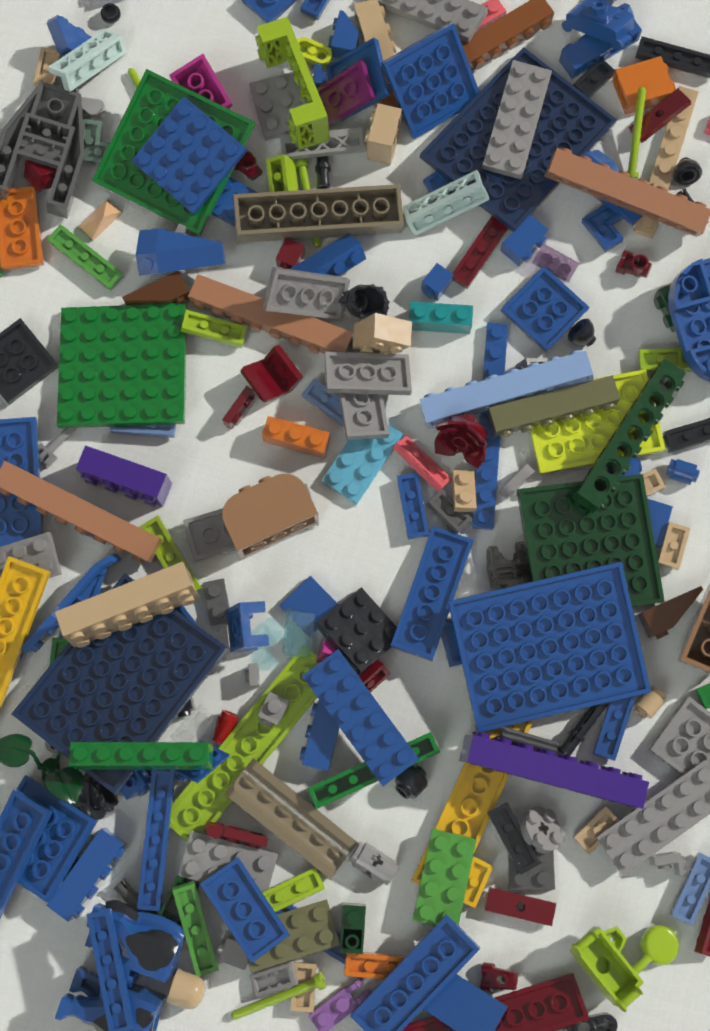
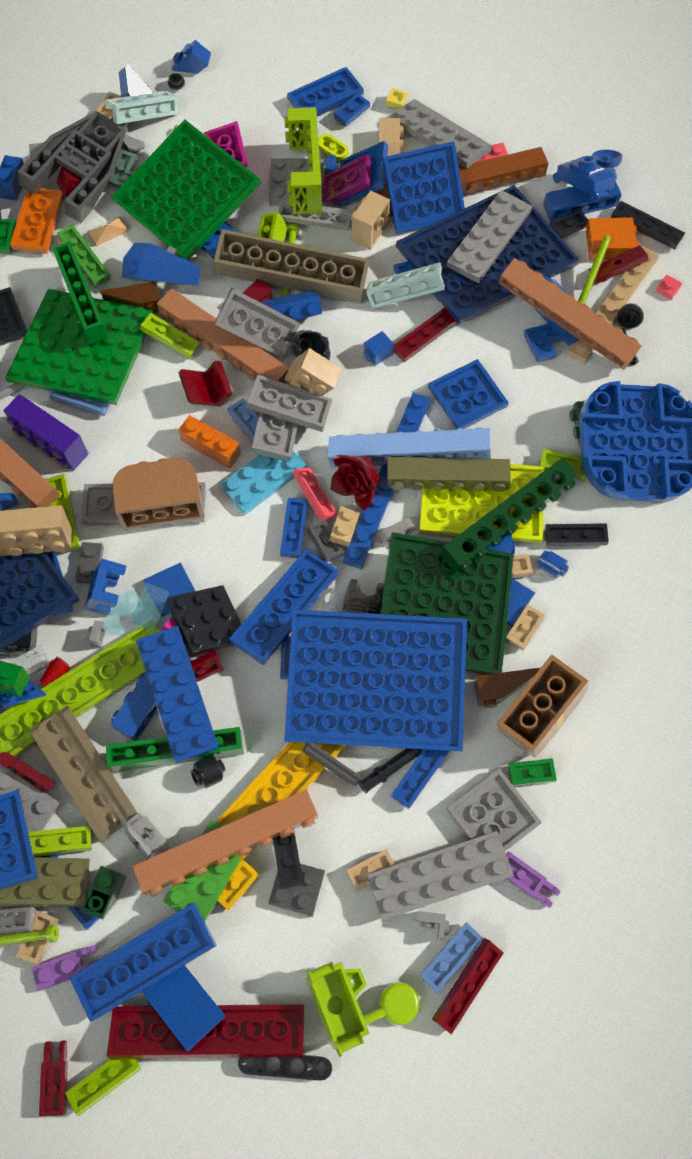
camera: 15 degrees right, 10 degrees down
(103, 308) = (79, 292): none -> green brick
(189, 155) = (197, 193): blue plate -> none
(244, 401) = (167, 405): dark red plate -> none
(249, 166) = (246, 218): dark red plate -> none
(273, 710) = (101, 668): light grey bracket -> none
(322, 170) = (310, 236): black pin -> none
(345, 36) = (362, 139): blue slope -> none
(370, 964) = (105, 933): orange plate -> none
(441, 317) = (371, 377): teal brick -> none
(457, 848) = (224, 843): none -> nougat brick
(493, 978) = (227, 986): dark red plate -> none
(523, 241) = (467, 334): blue brick -> none
(534, 909) = (260, 914): dark red tile -> none
(544, 840) = (326, 850): light grey plate -> none
(554, 771) = (344, 796): dark purple brick -> none
(556, 262) = (490, 359): clear purple plate -> none
(582, 333) = (496, 422): black brick -> none
(635, 265) = (559, 378): dark red plate -> none
(649, 703) = (459, 763): tan brick -> none

